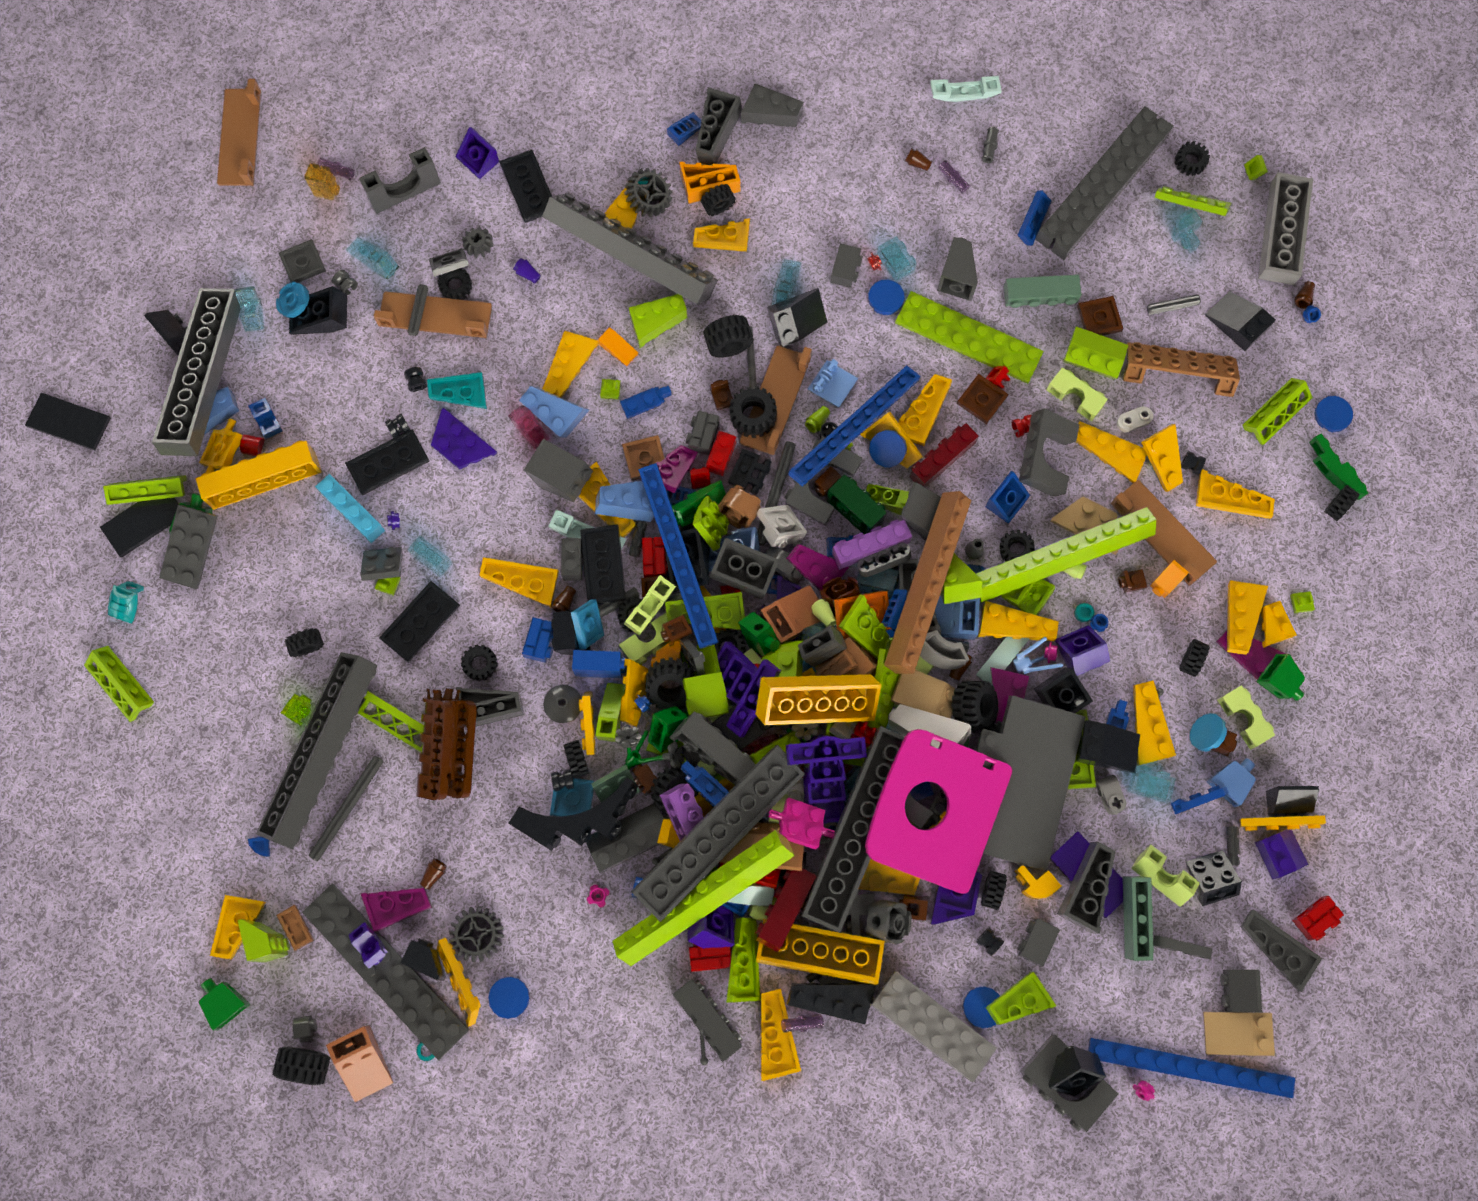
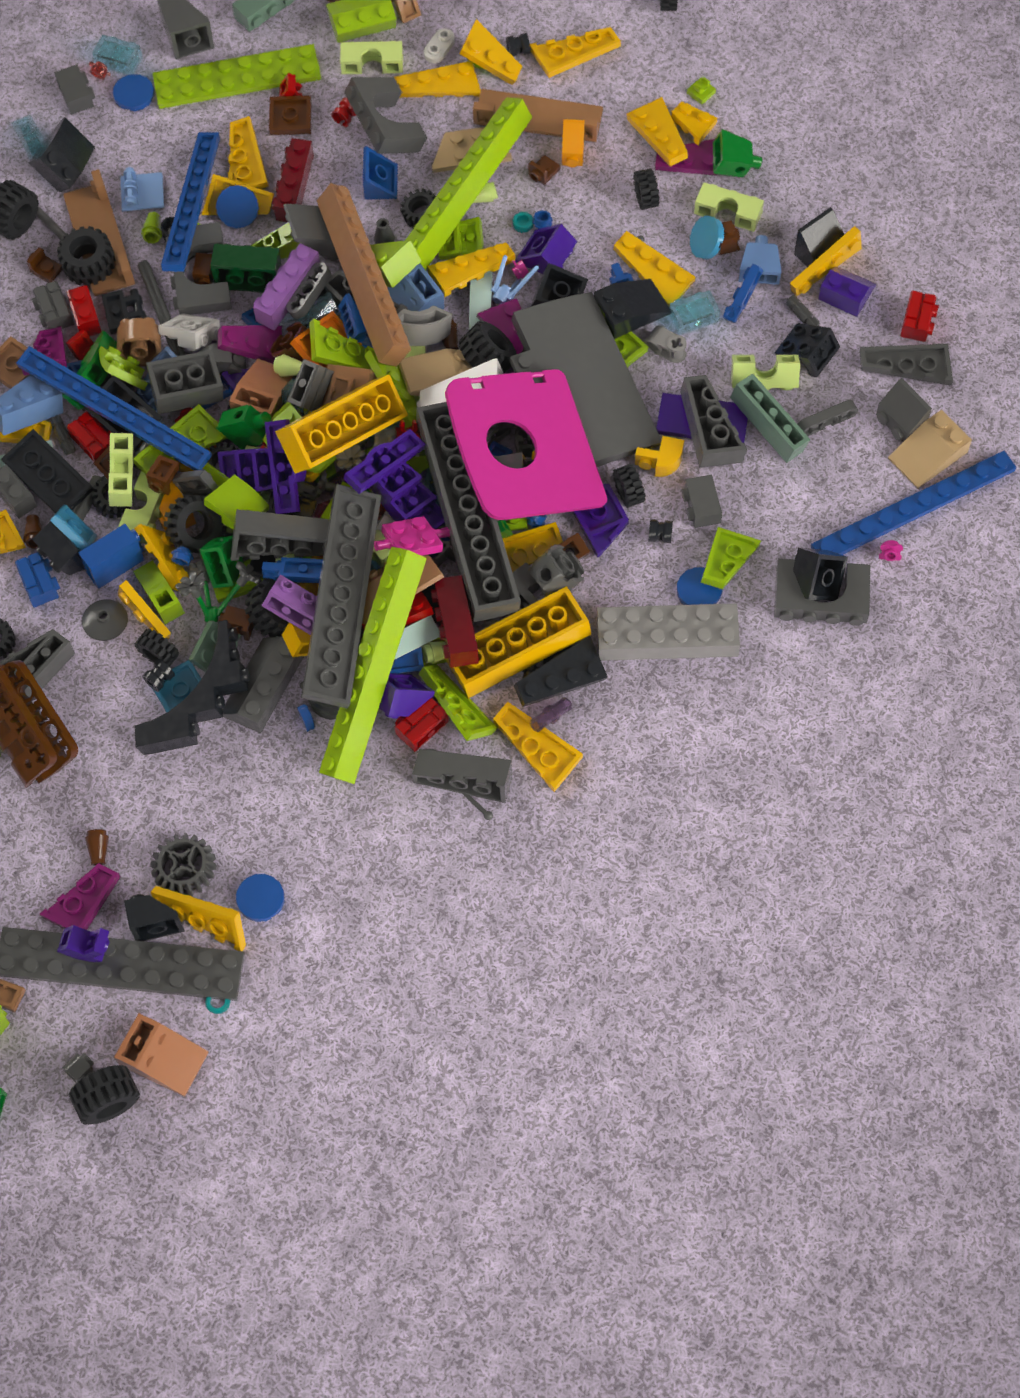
camera: 35 degrees left, 10 degrees down
(599, 901) = (274, 745): dark pink plate -> none

